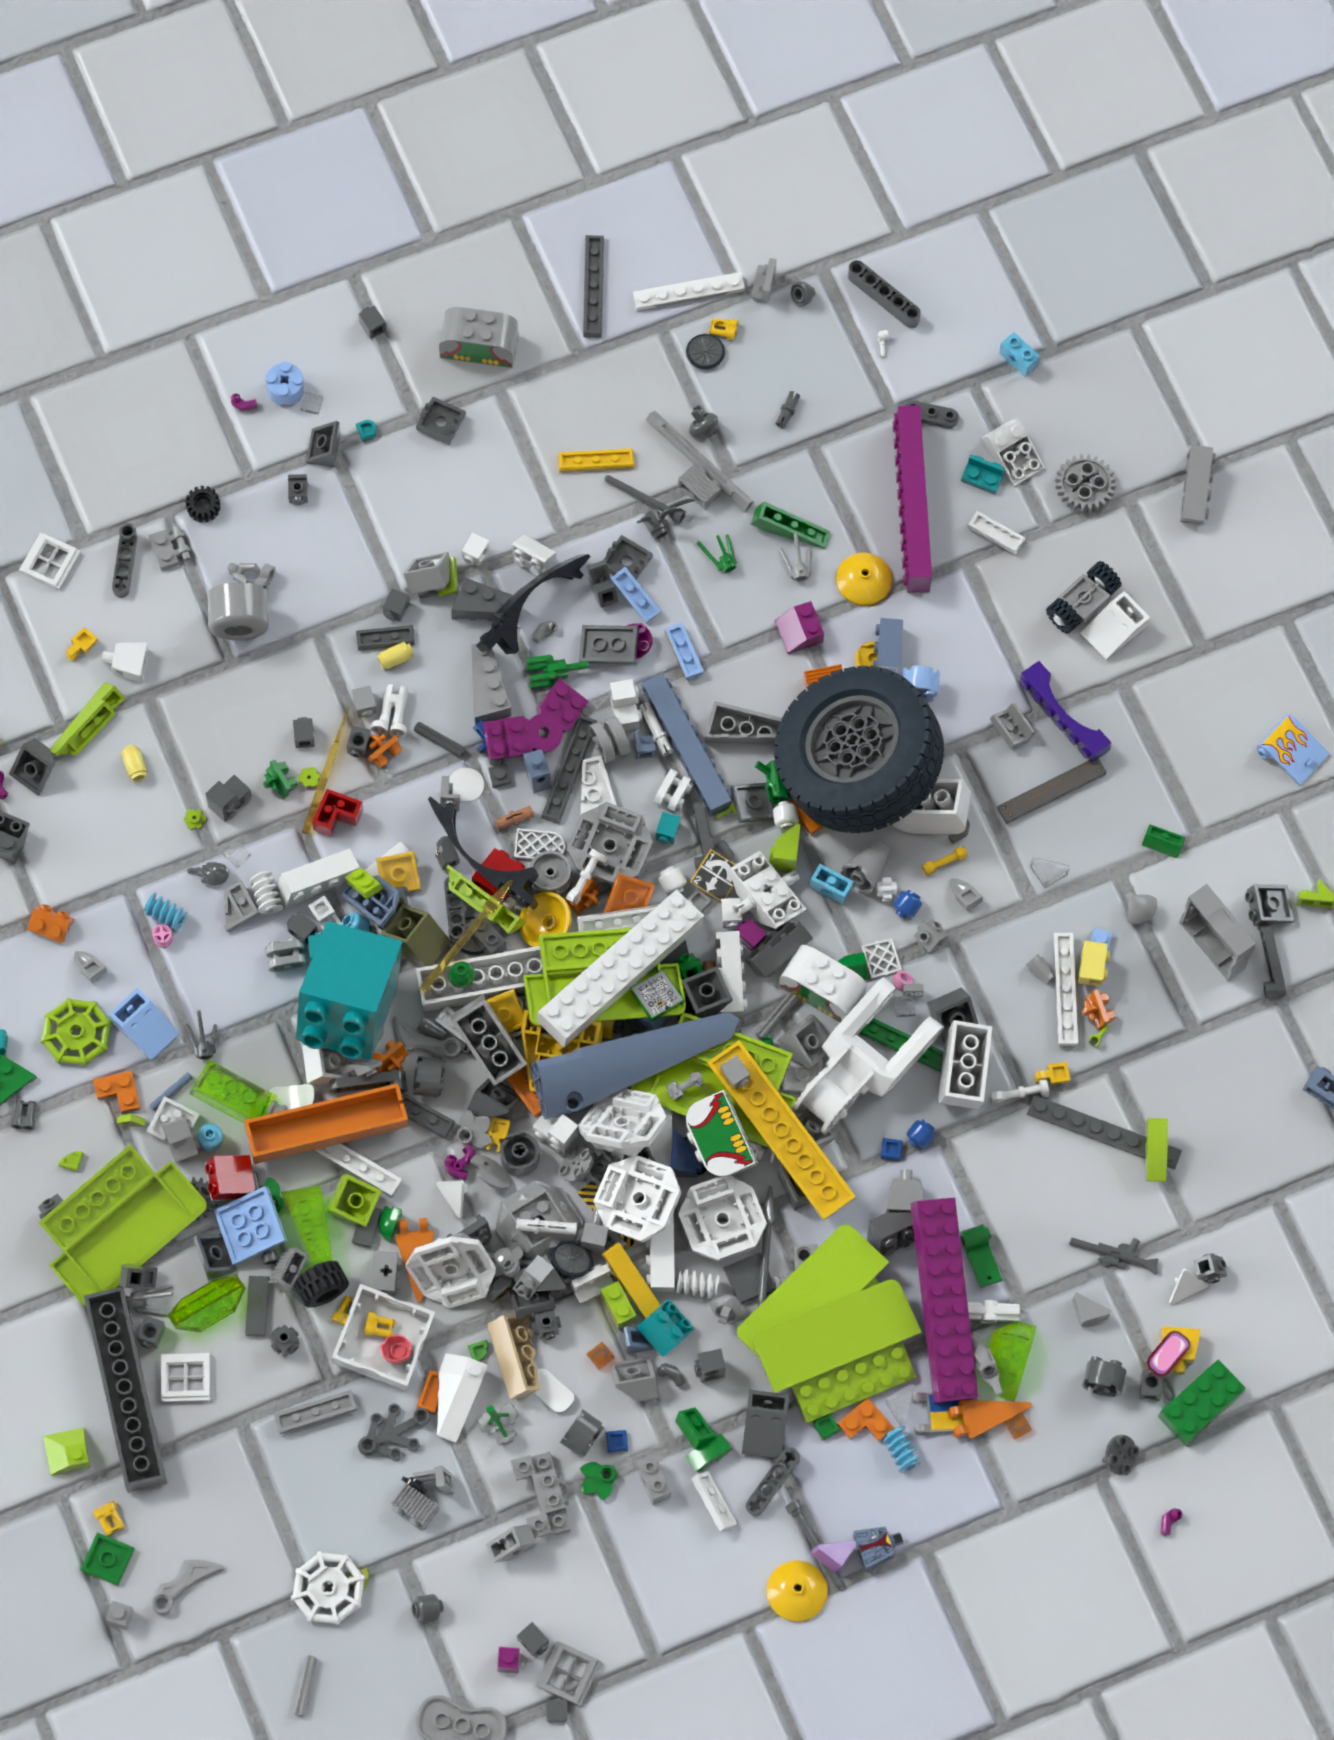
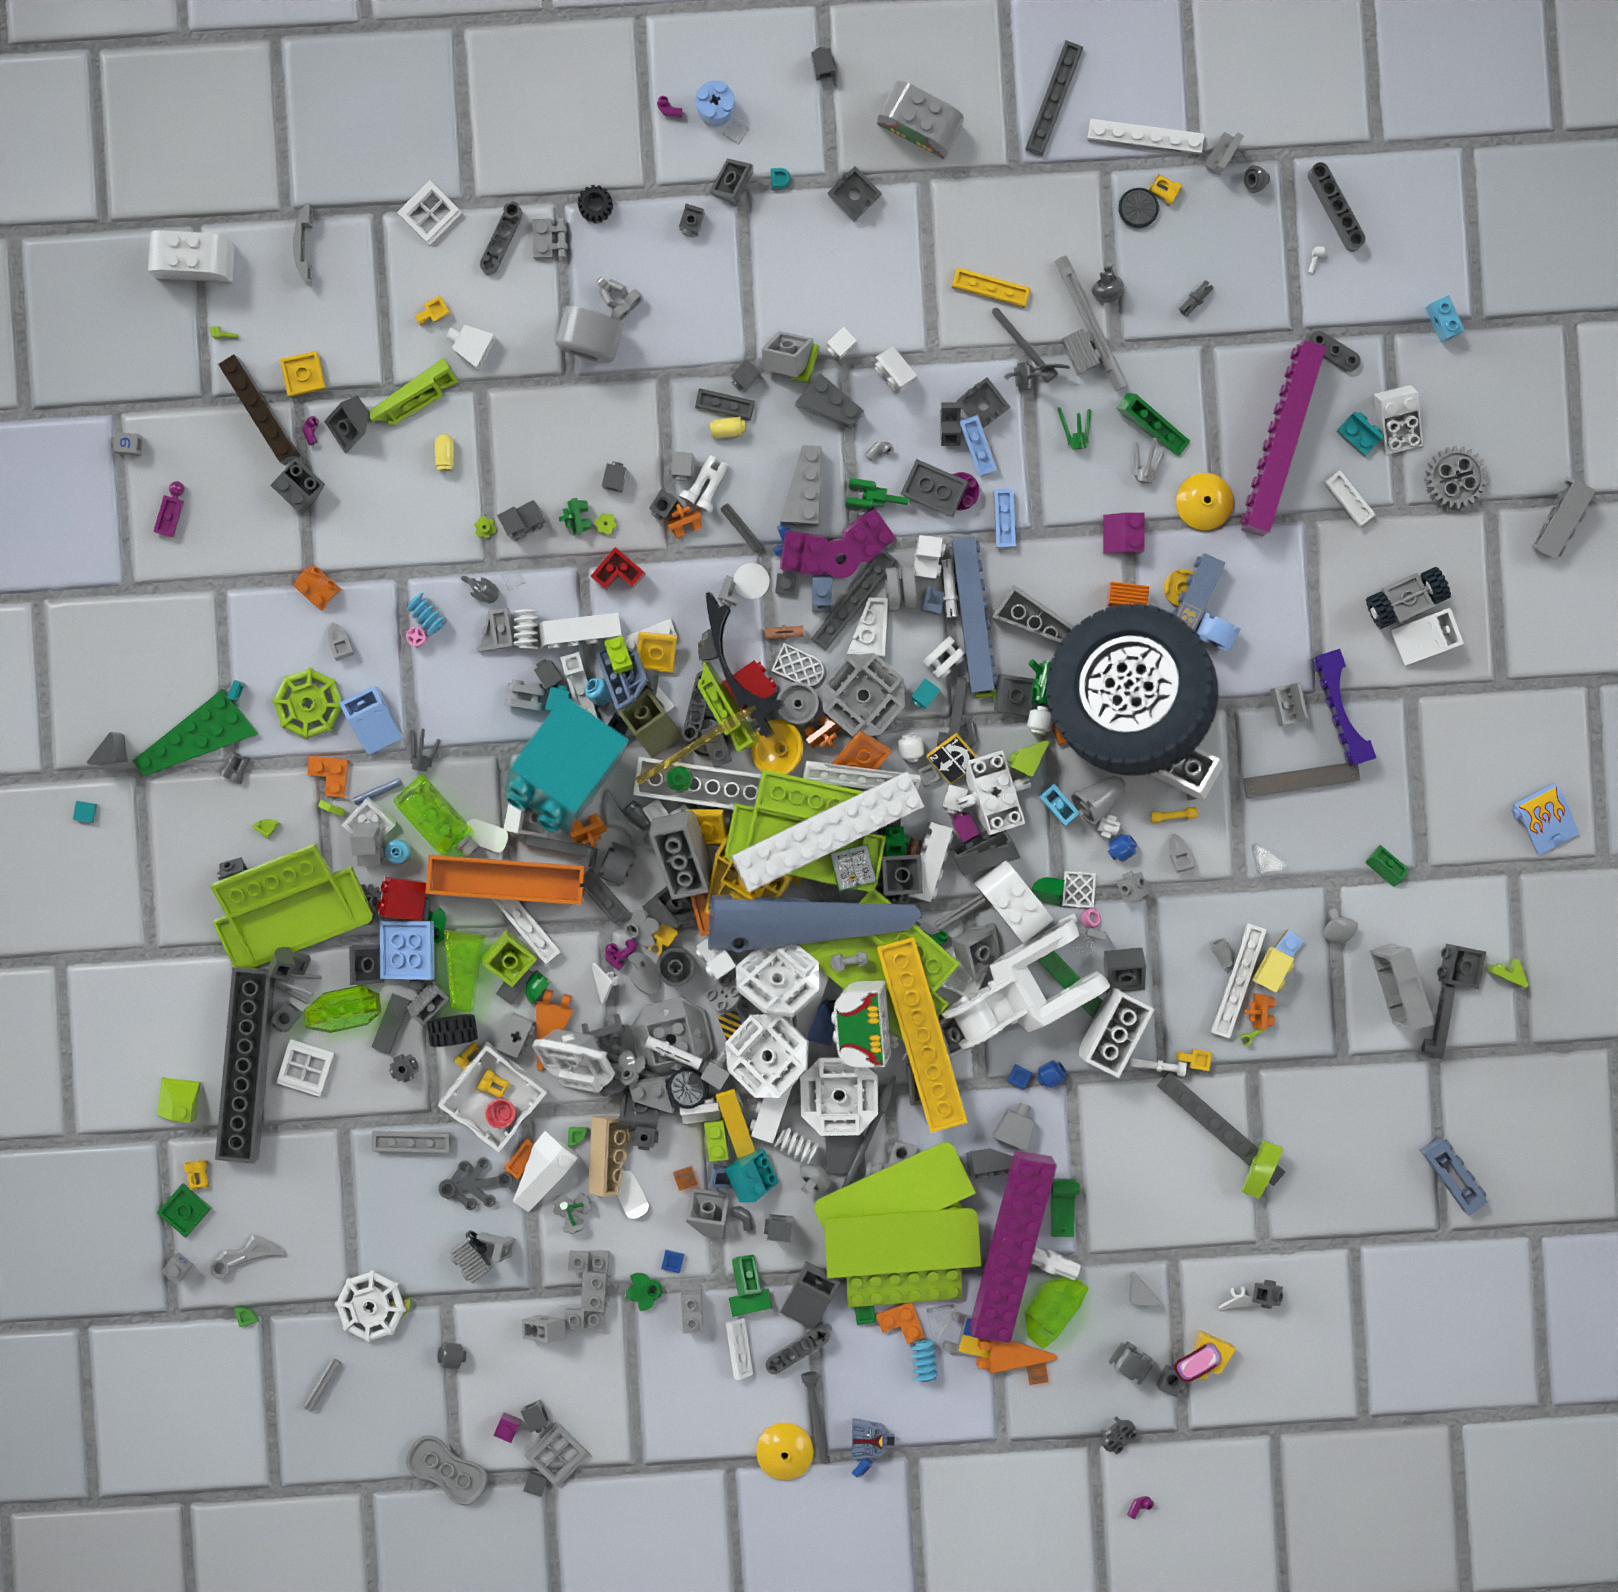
camera: 15 degrees right, 20 degrees up
(204, 1644) = (245, 1316): none -> bright green tile
(324, 777) = (619, 529): clear yellow piece -> none
(361, 1066) = (560, 838): light grey slope -> none
(505, 627) = (839, 442): black slope -> none
(532, 1278) = (644, 1098): light grey slope -> none
(575, 894) = (844, 708): white piece -> none
(581, 1433) = (642, 1249): dark grey brick -> none
(735, 1072) = (898, 971): light grey brick -> none
(833, 1554) = (829, 1436): slope -> none
(880, 1576) = (863, 1467): none -> blue tile
(986, 1364) = (1028, 1317): light grey animal -> none
(1112, 1255) = (1183, 1246): dark grey piece -> none
(1201, 1402) = (1210, 1412): green brick -> none

